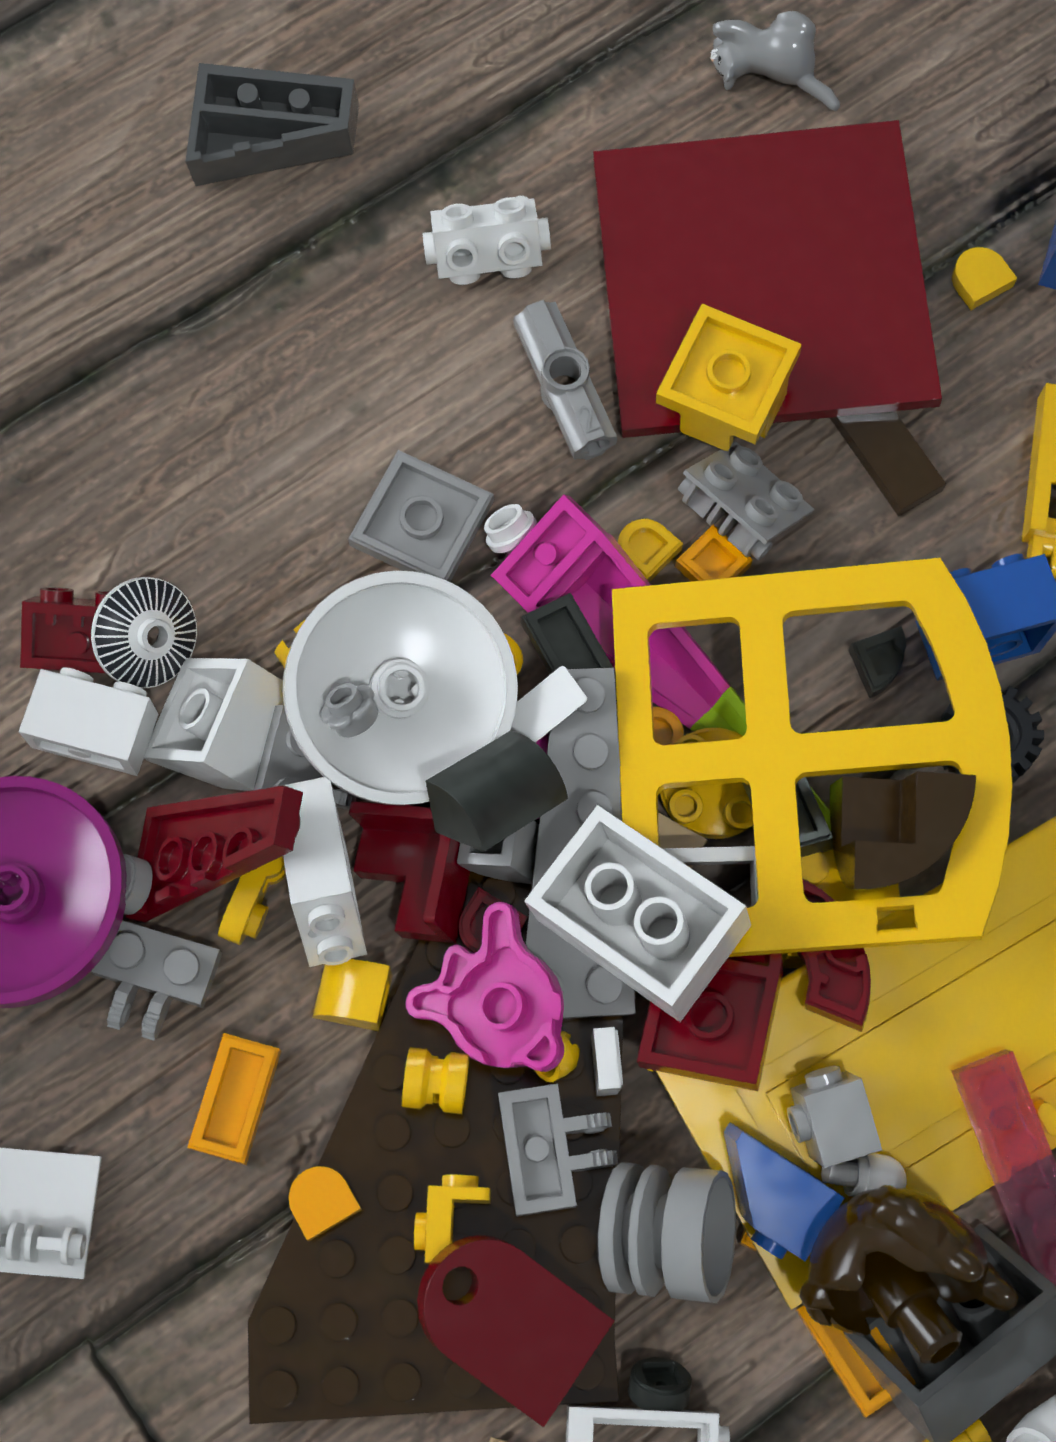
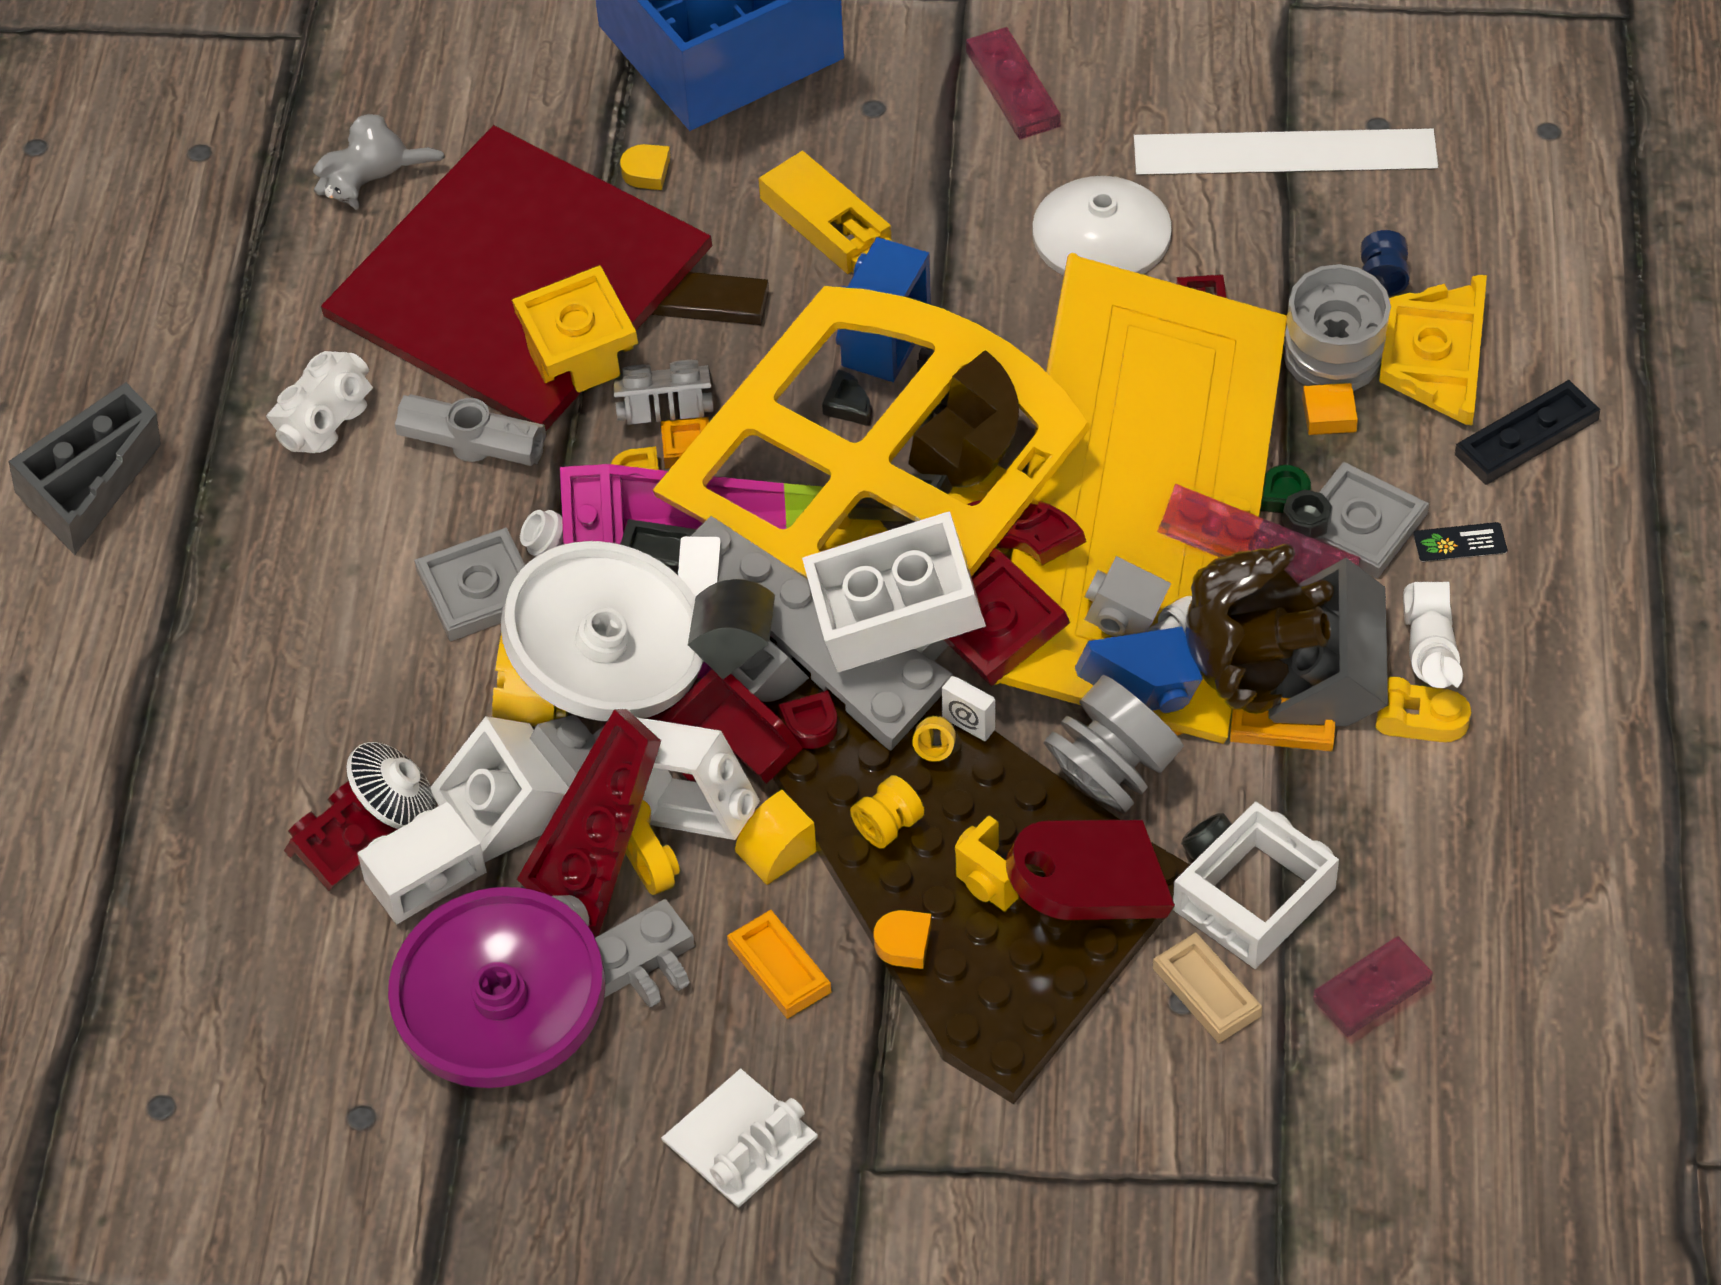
camera: 45 degrees left, 20 degrees down
(350, 709) = (592, 659): light grey plate -> none
(497, 1001) = (866, 736): dark pink tile -> none
(539, 1148) = (991, 787): light grey hinge -> none

